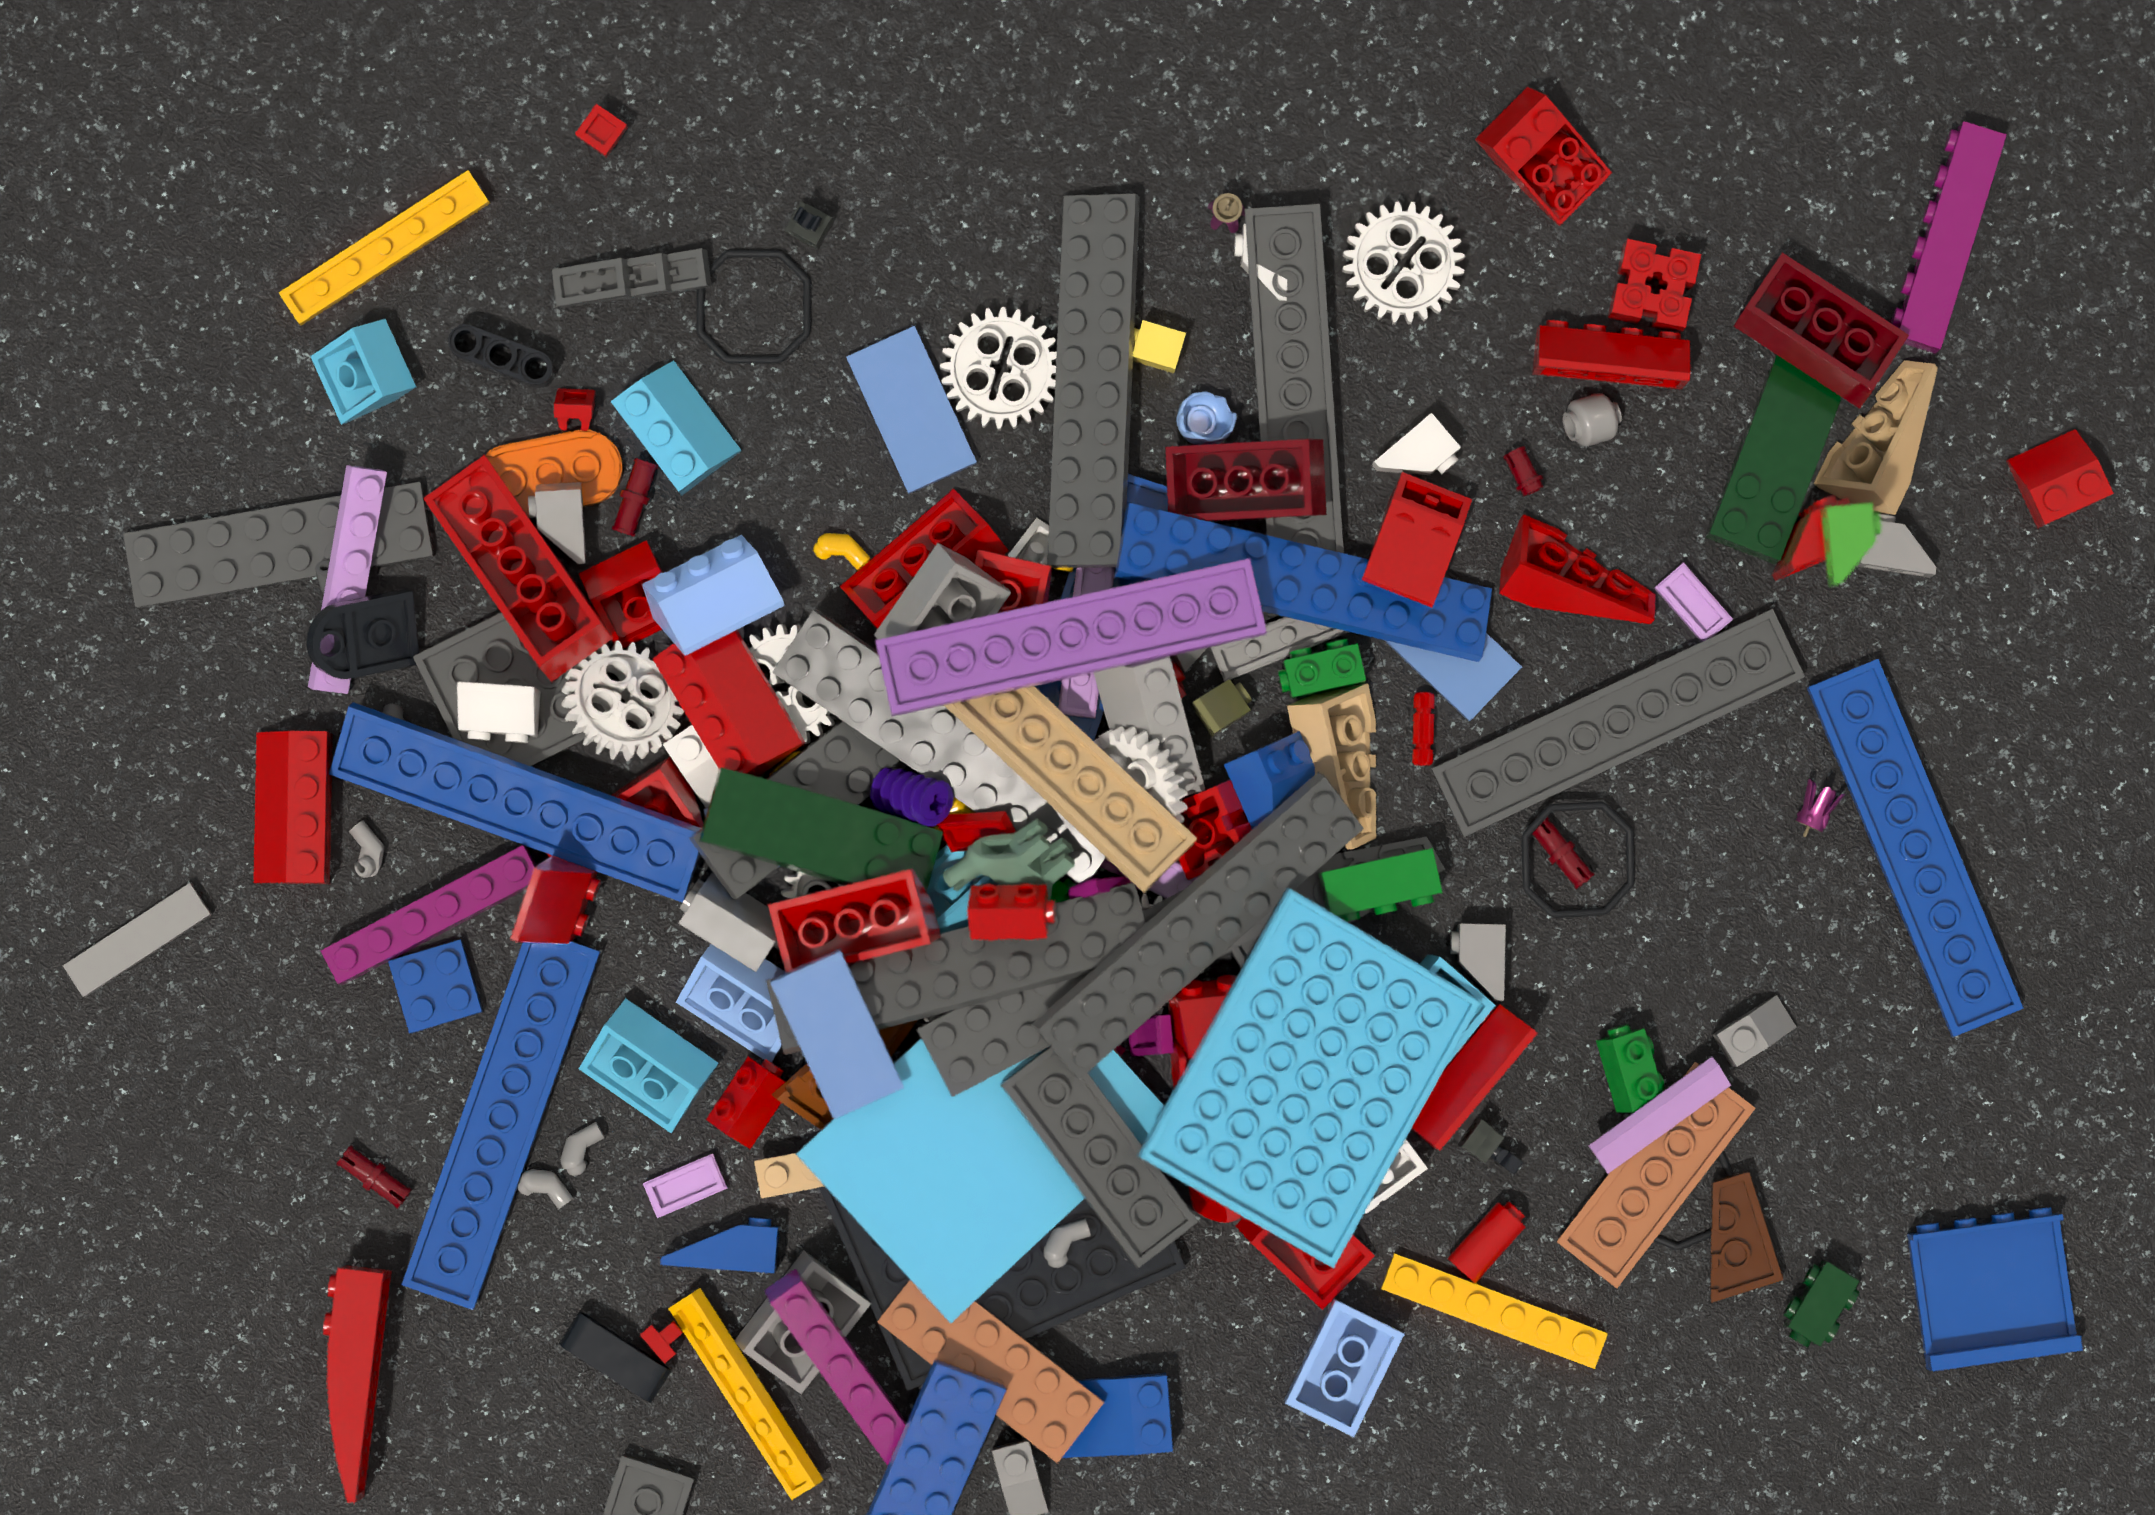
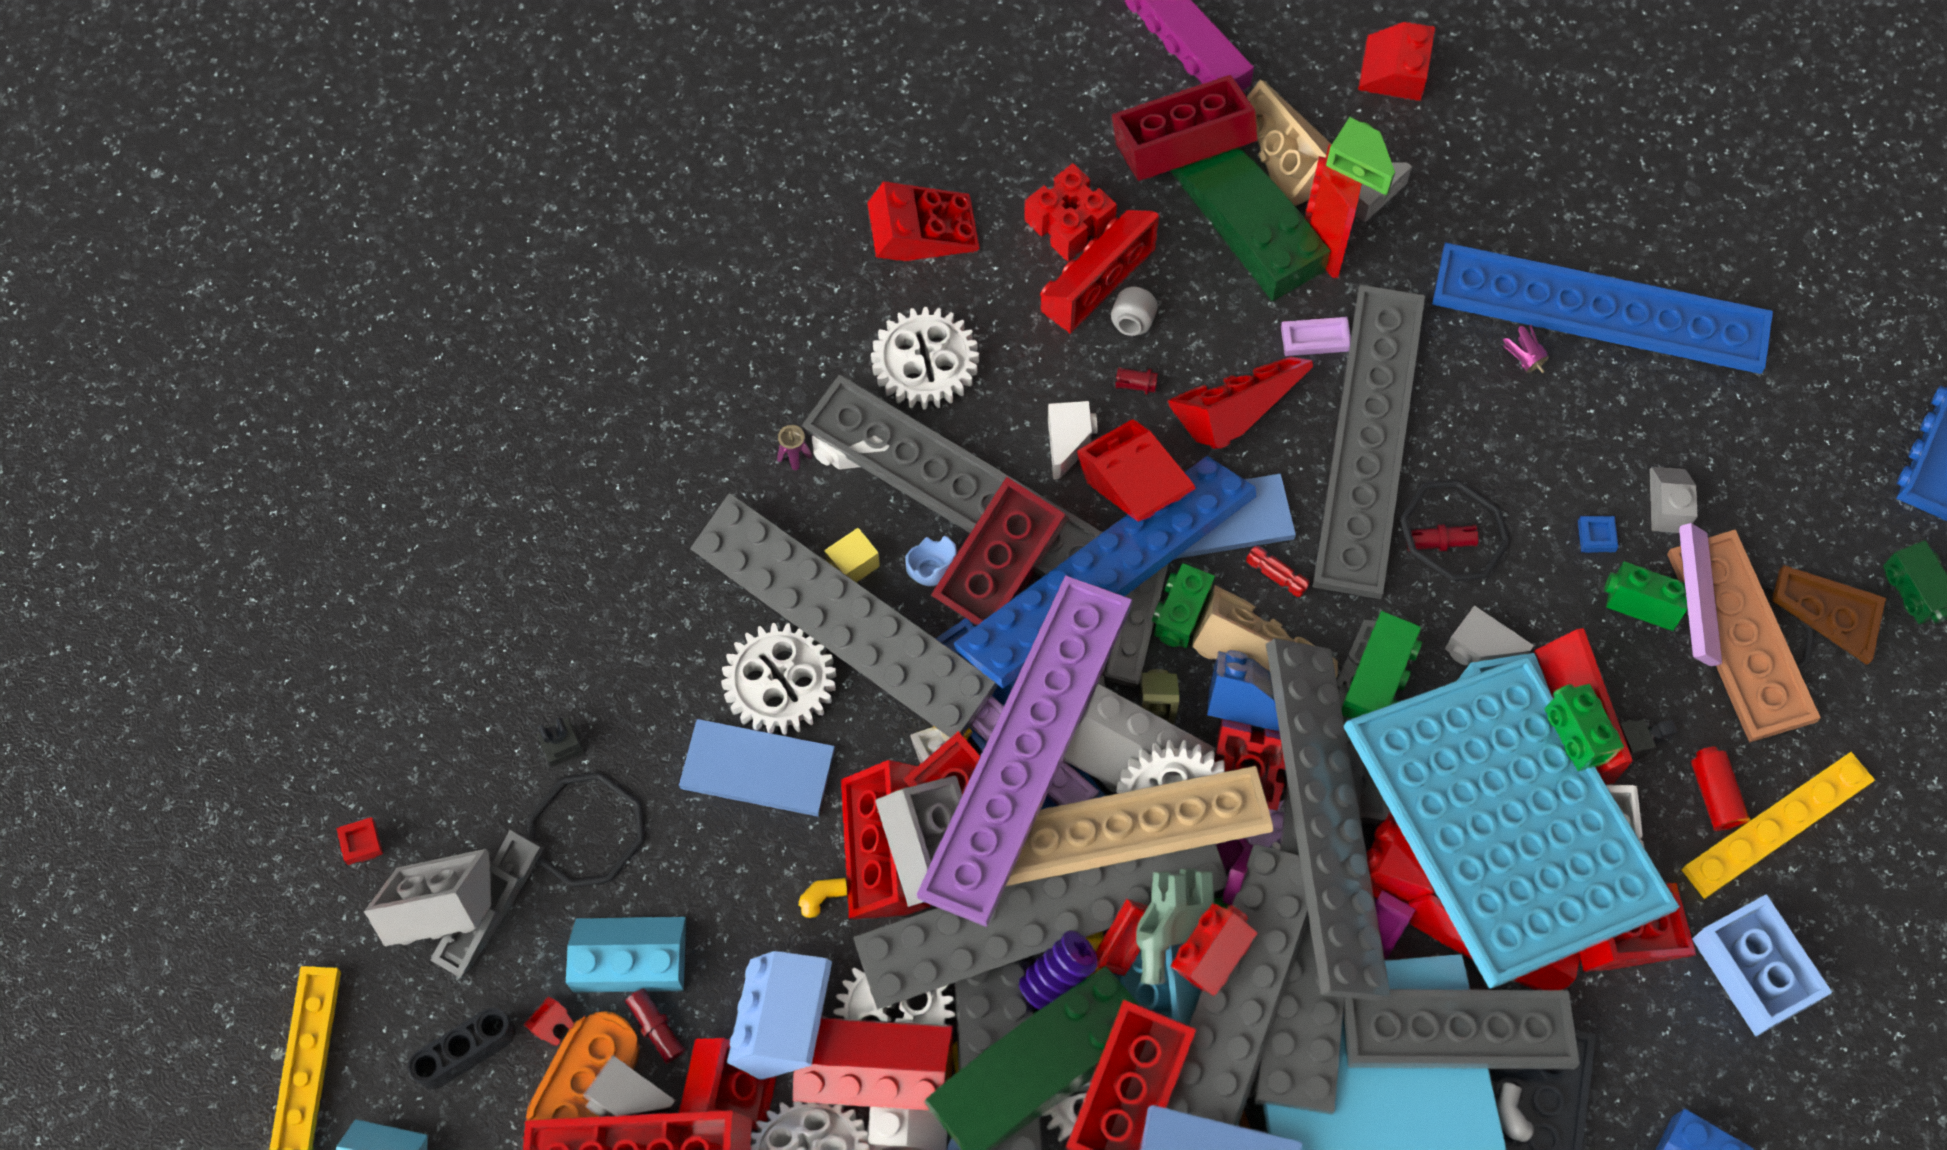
camera: 50 degrees left, 20 degrees down
(598, 234) = (432, 899): none -> light grey slope
(1439, 1089) = (1583, 726): none -> green brick
(1670, 988) = (1598, 534): none -> blue tile

